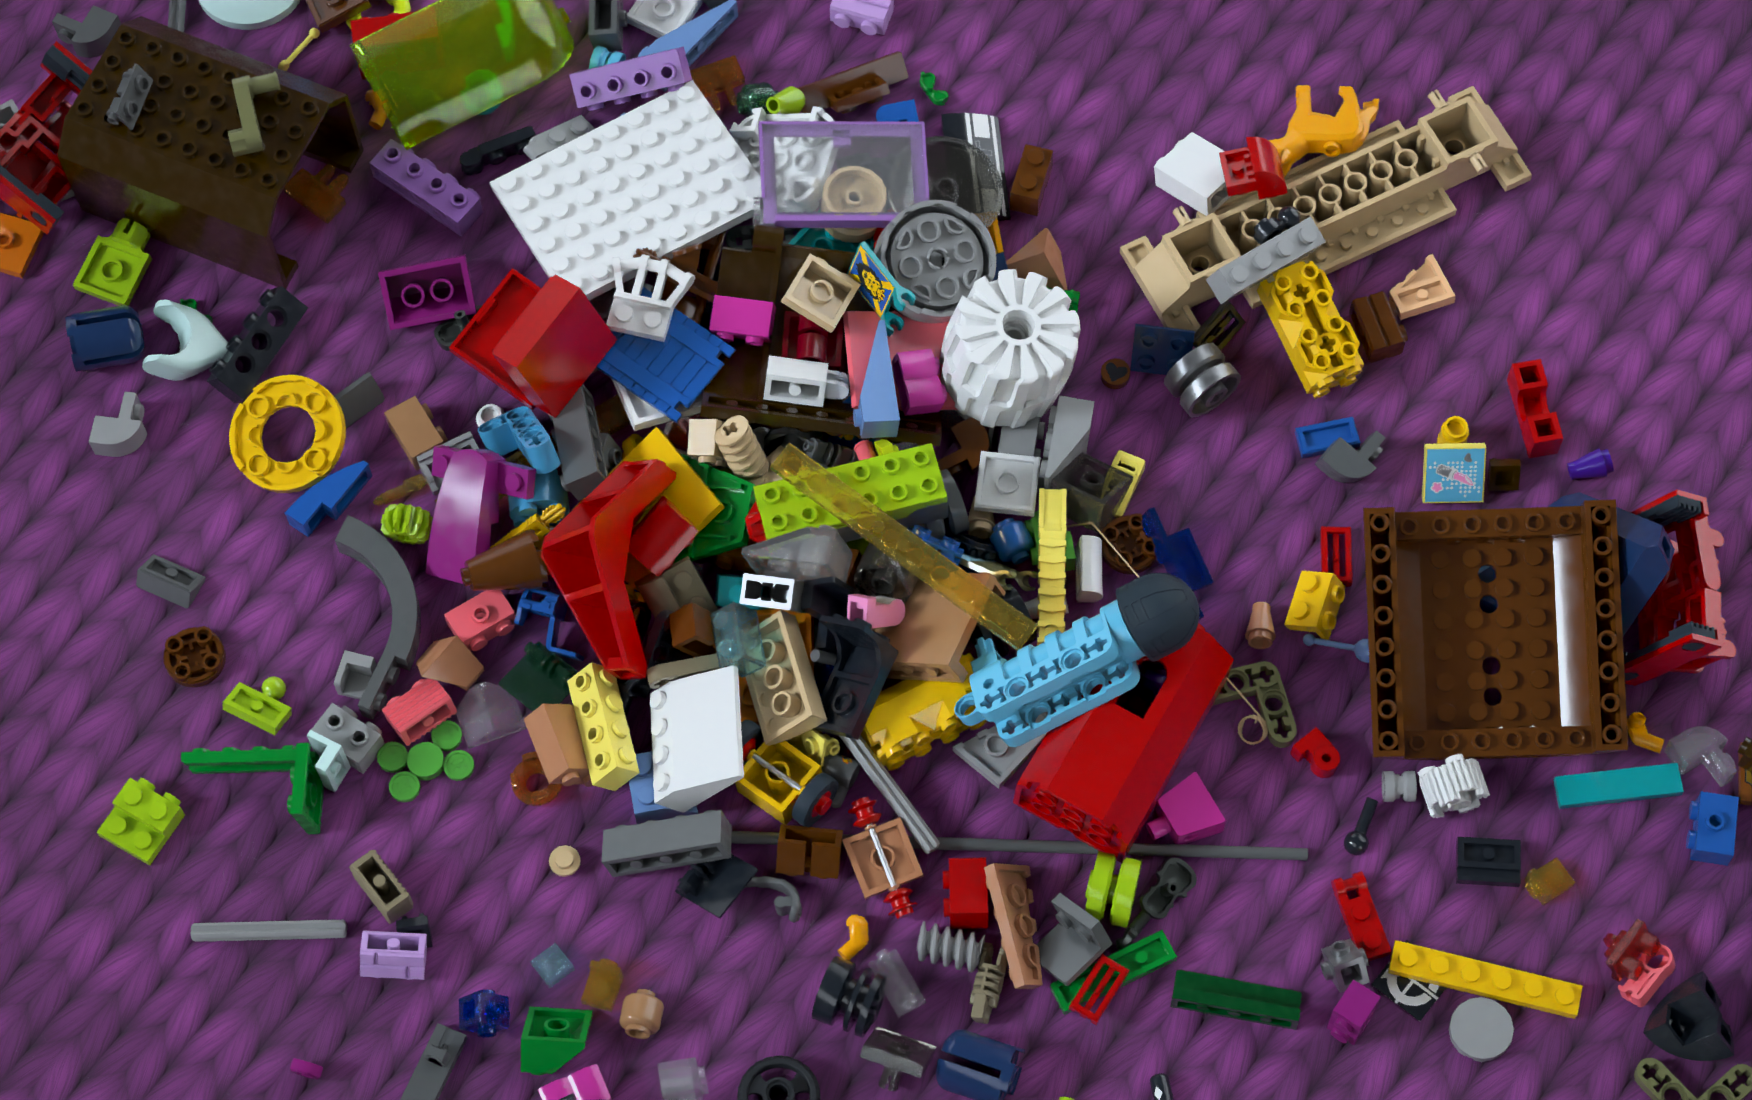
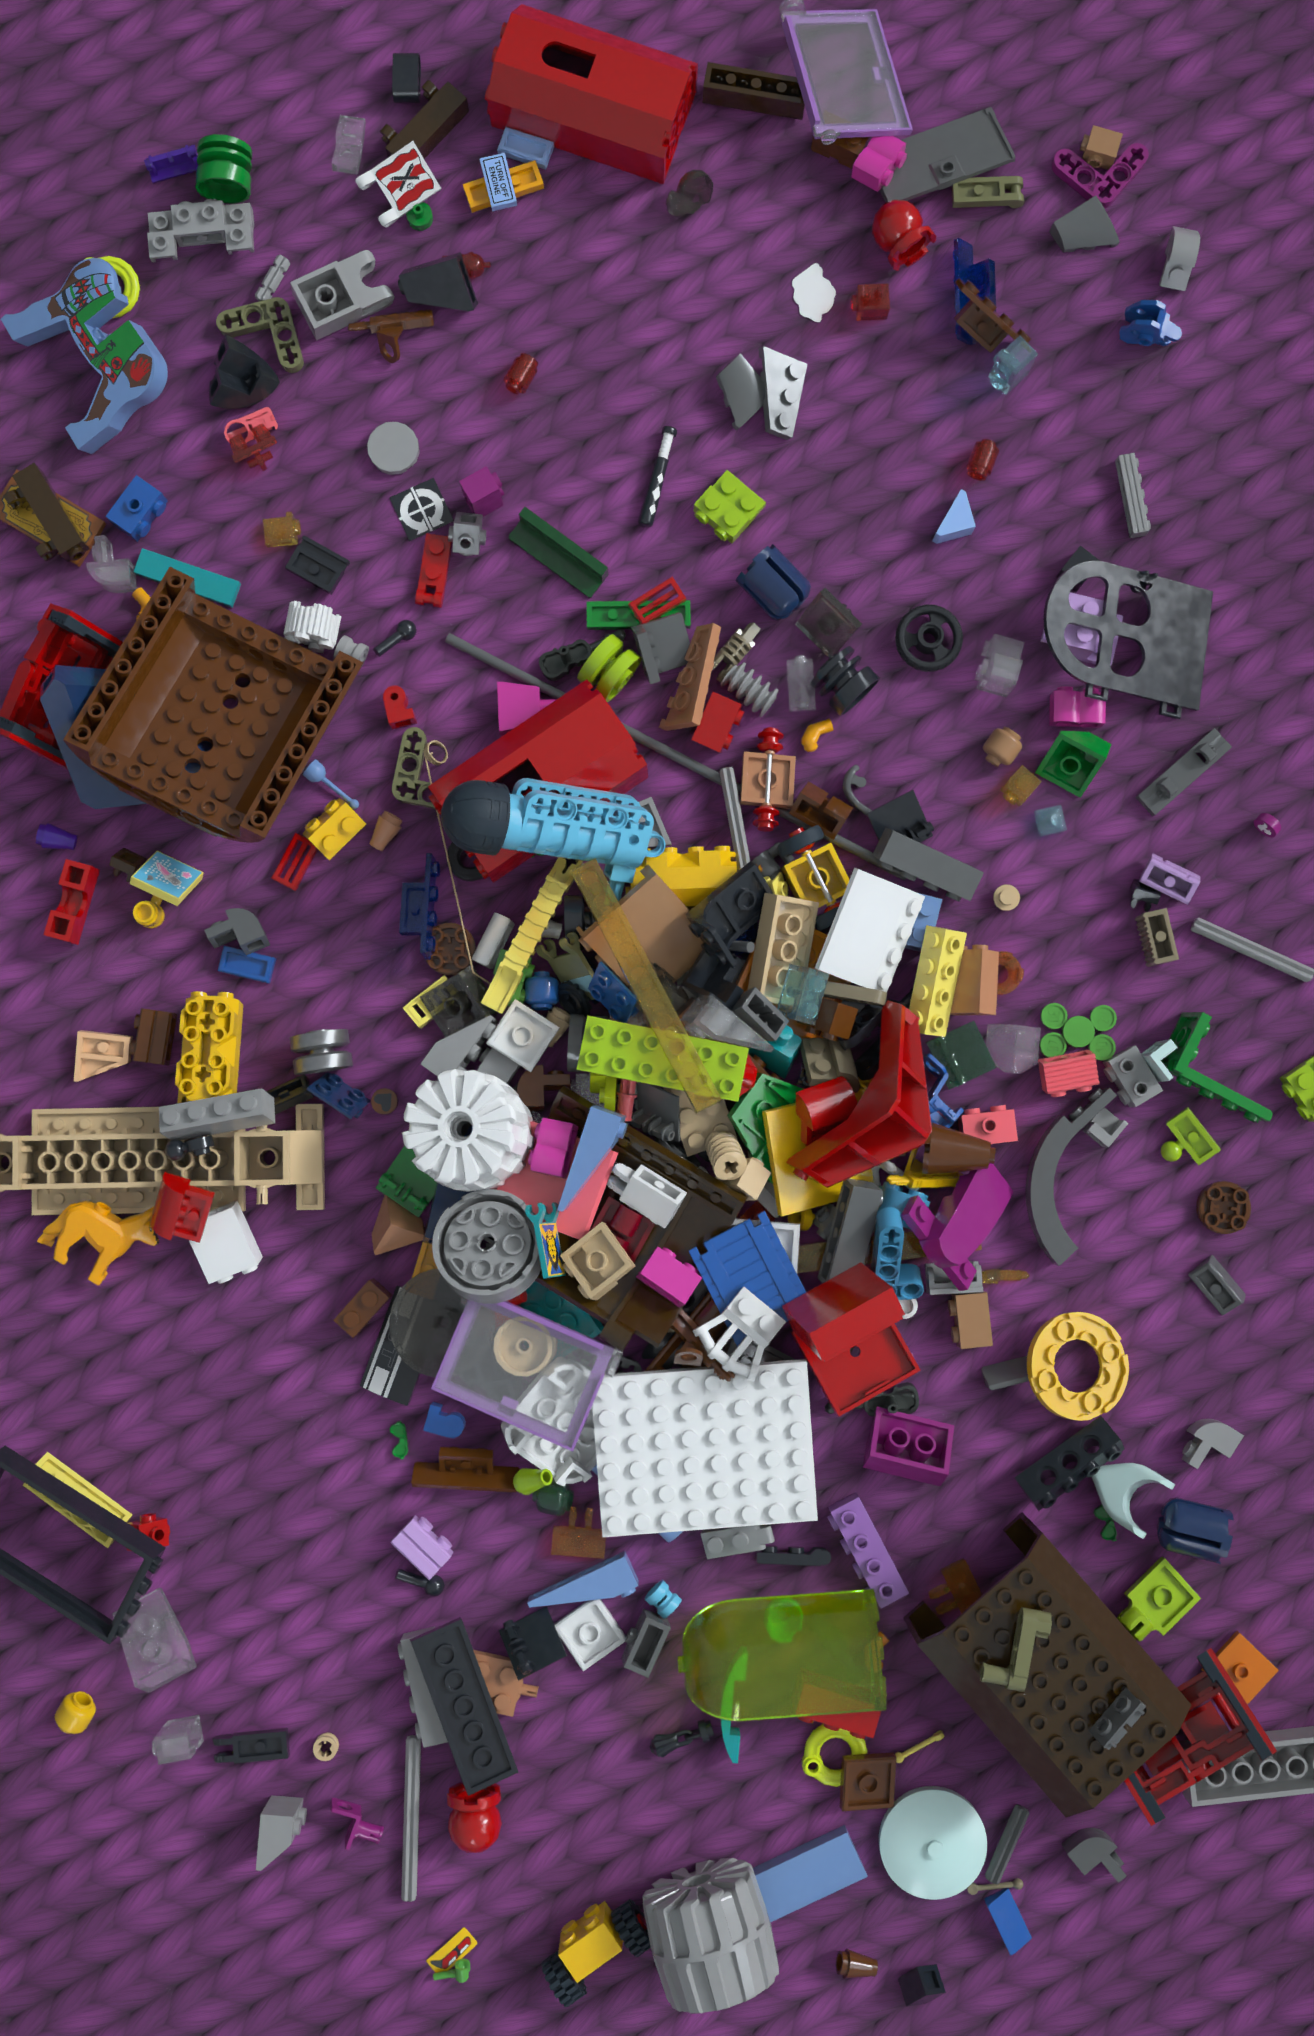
camera: 160 degrees left, 20 degrees up
(328, 497) = (1066, 1294): blue slope -> none
(406, 523) = (1014, 1236): lime gear -> none
(450, 662) = (1032, 1098): nougat slope -> none
(484, 1013) = (1120, 801): clear blue brick -> none
(631, 77) = (653, 1566): medium lavender brick -> none
(877, 610) = (685, 961): bright pink leg -> none
(1485, 979) = (370, 482): yellow plate -> none

